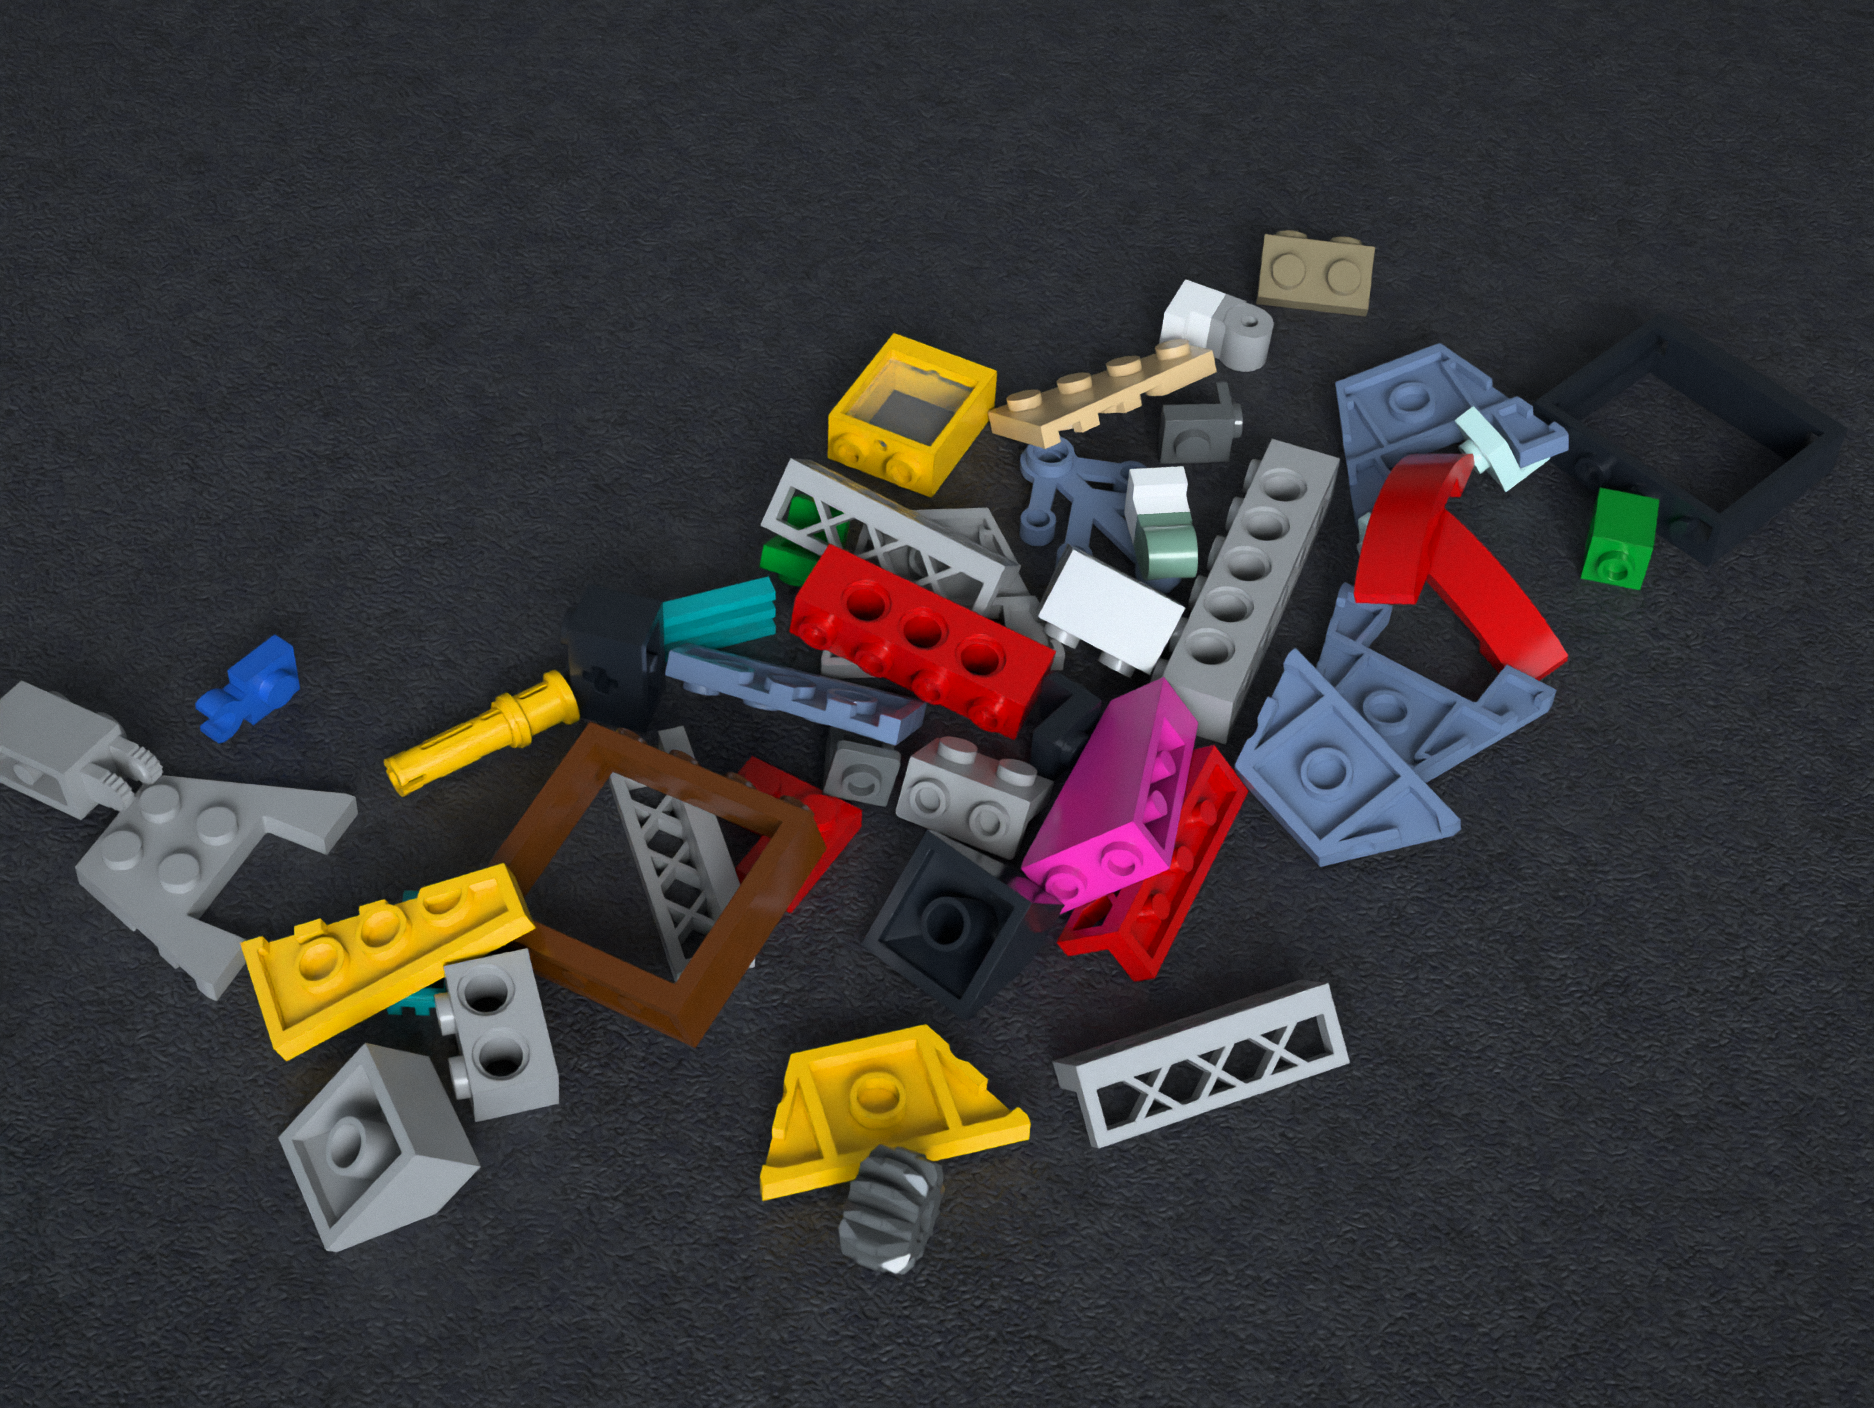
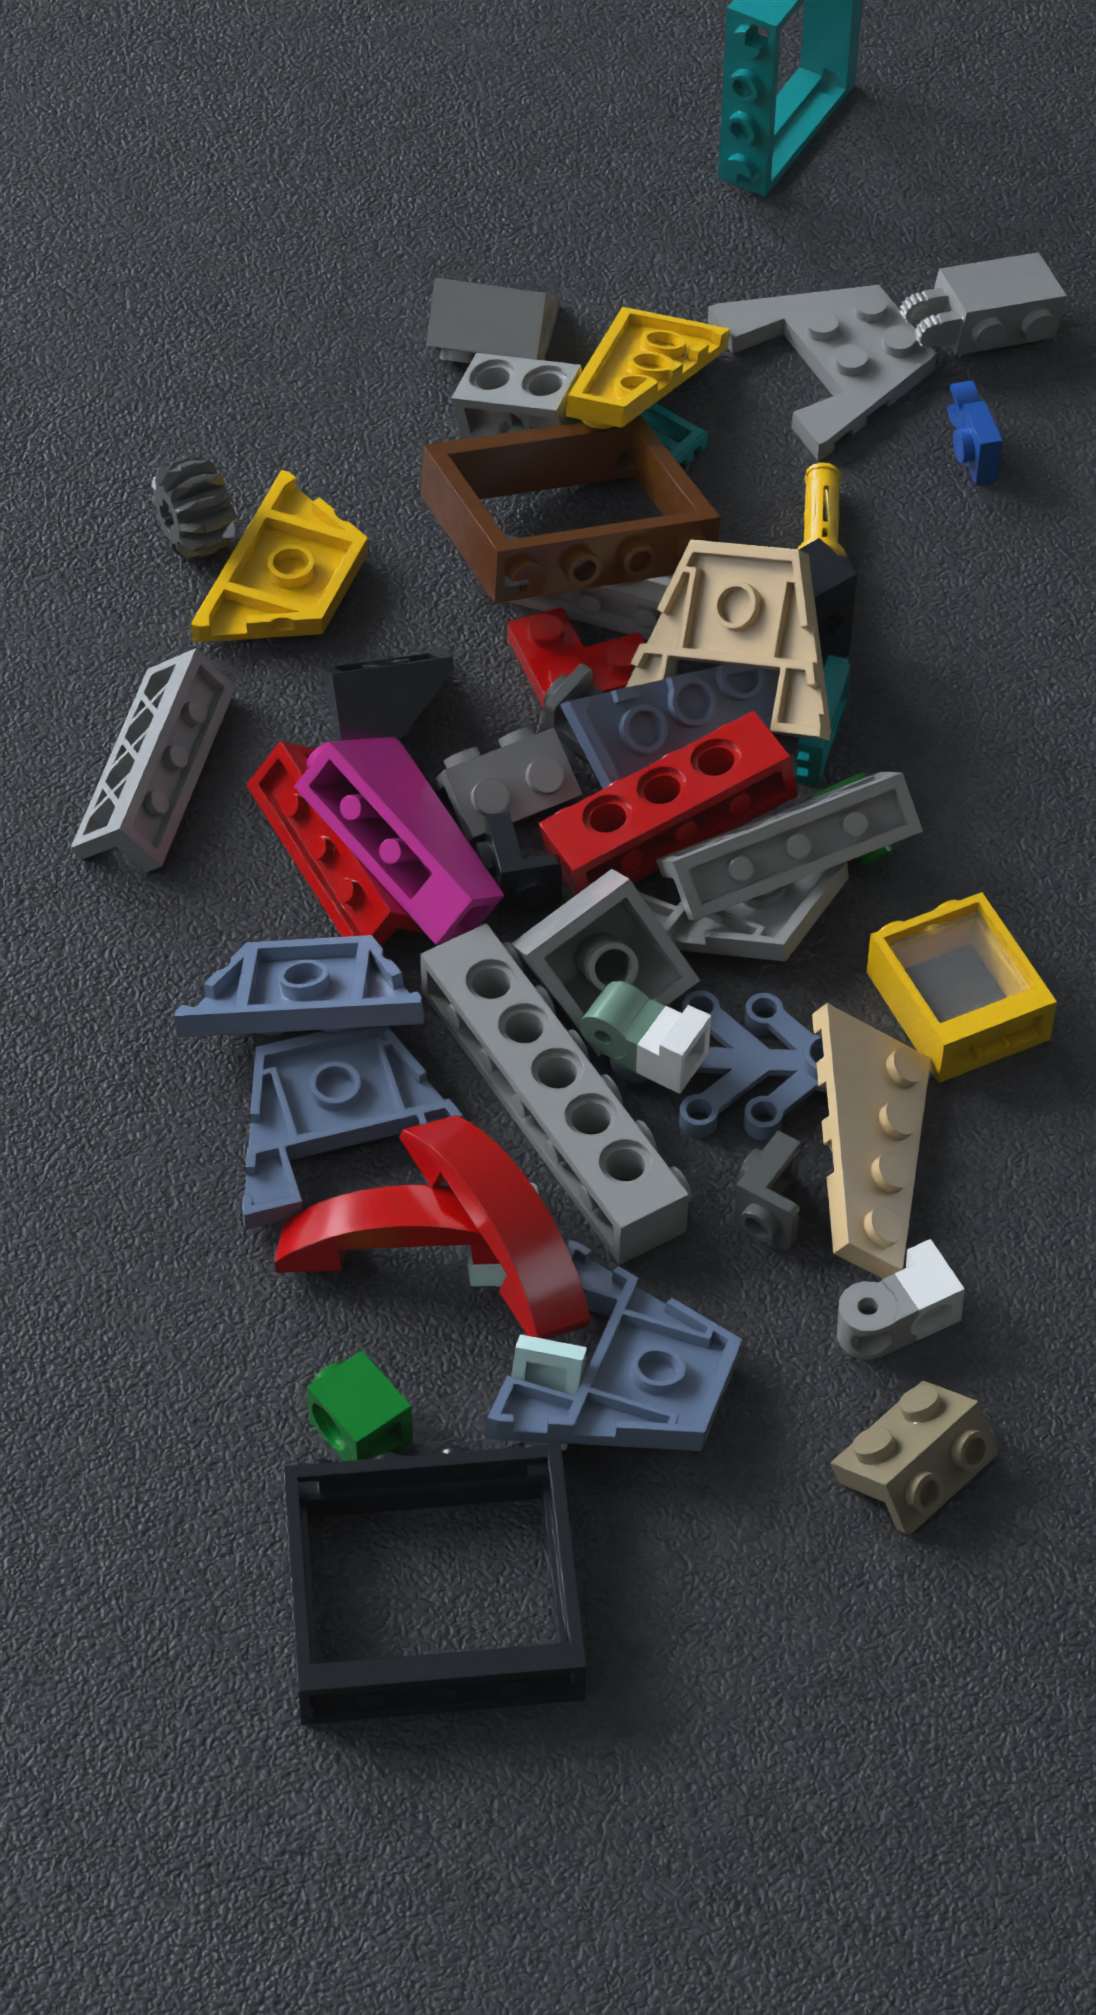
camera: 130 degrees right, 5 degrees up
(703, 657) = (744, 611): none -> tan wing

